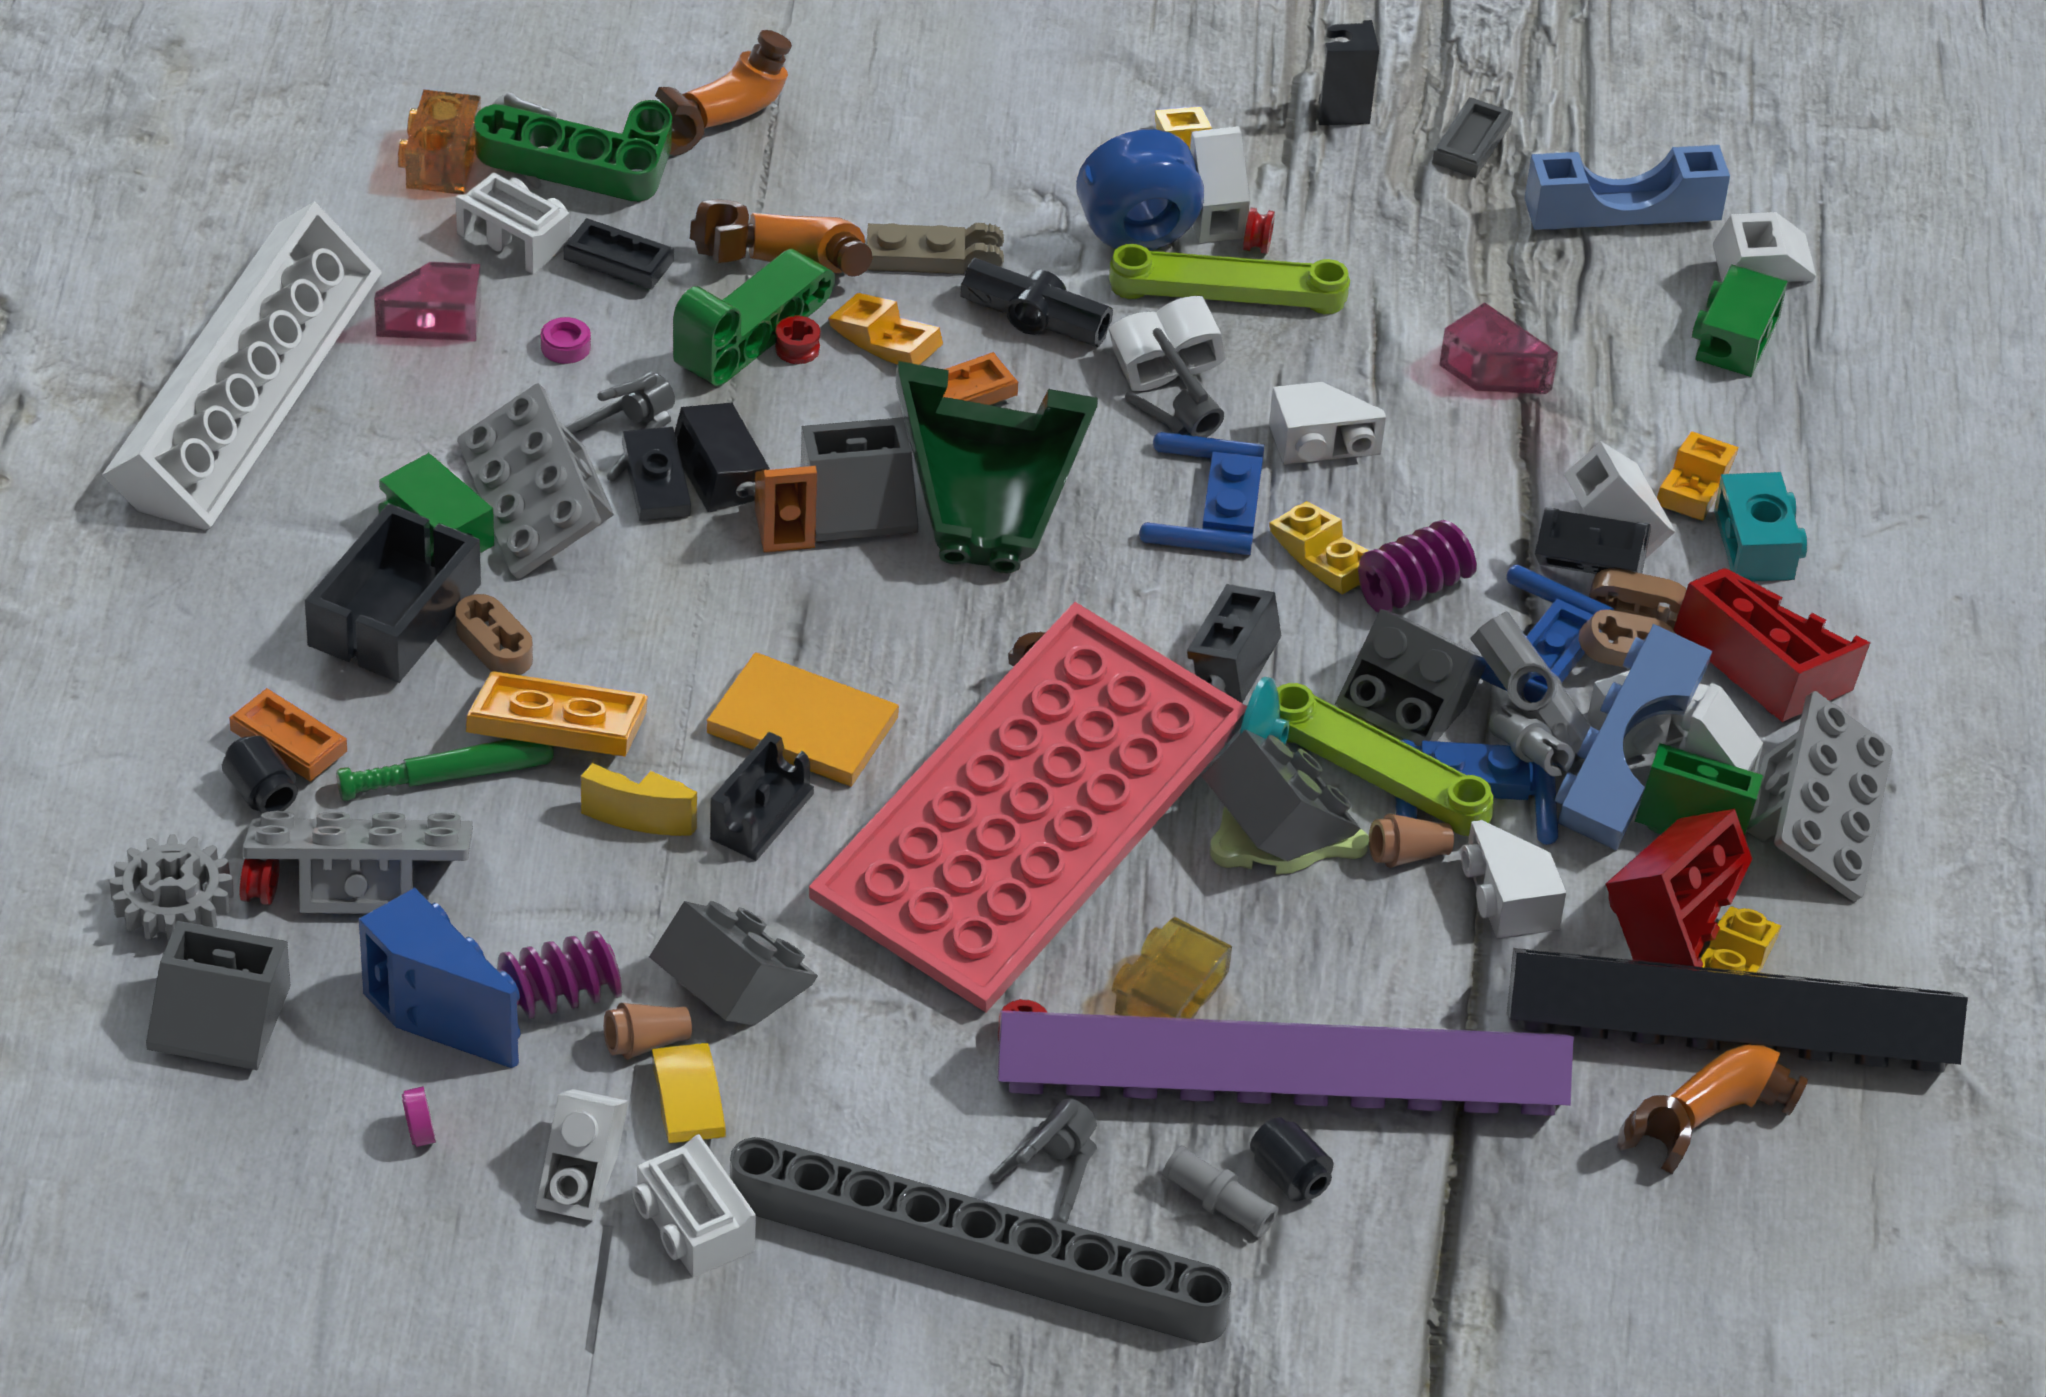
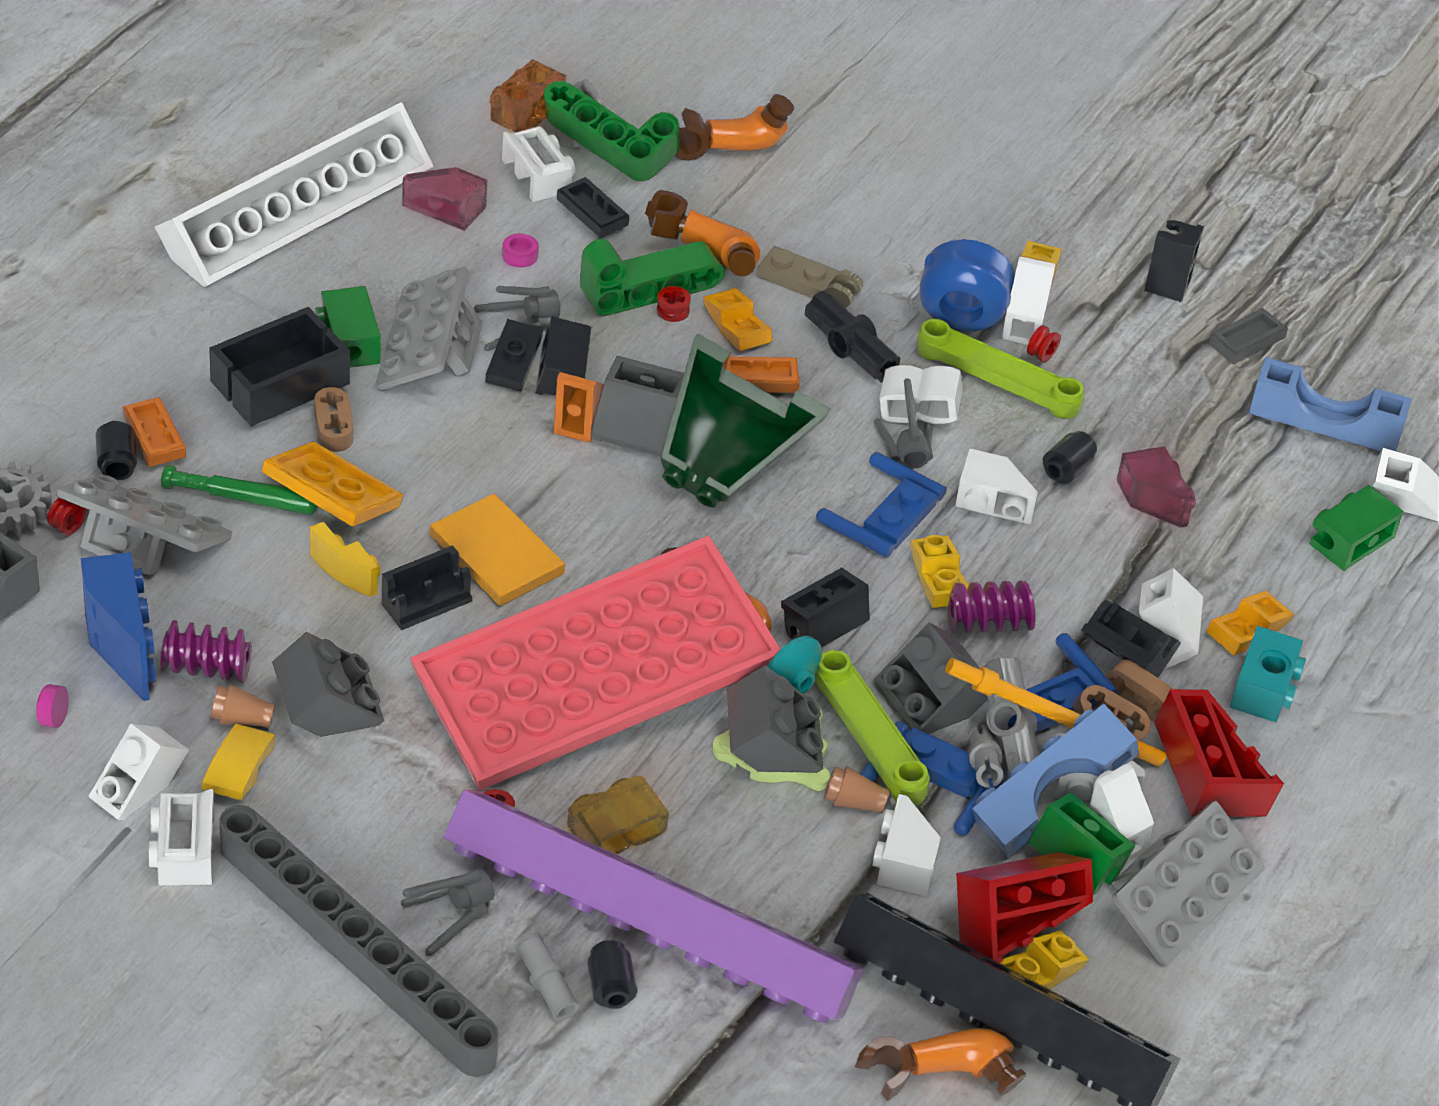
camera: 25 degrees right, 0 degrees up
(1380, 356) = (1069, 457): none -> black brick
(1508, 651) = (989, 683): none -> light orange bar

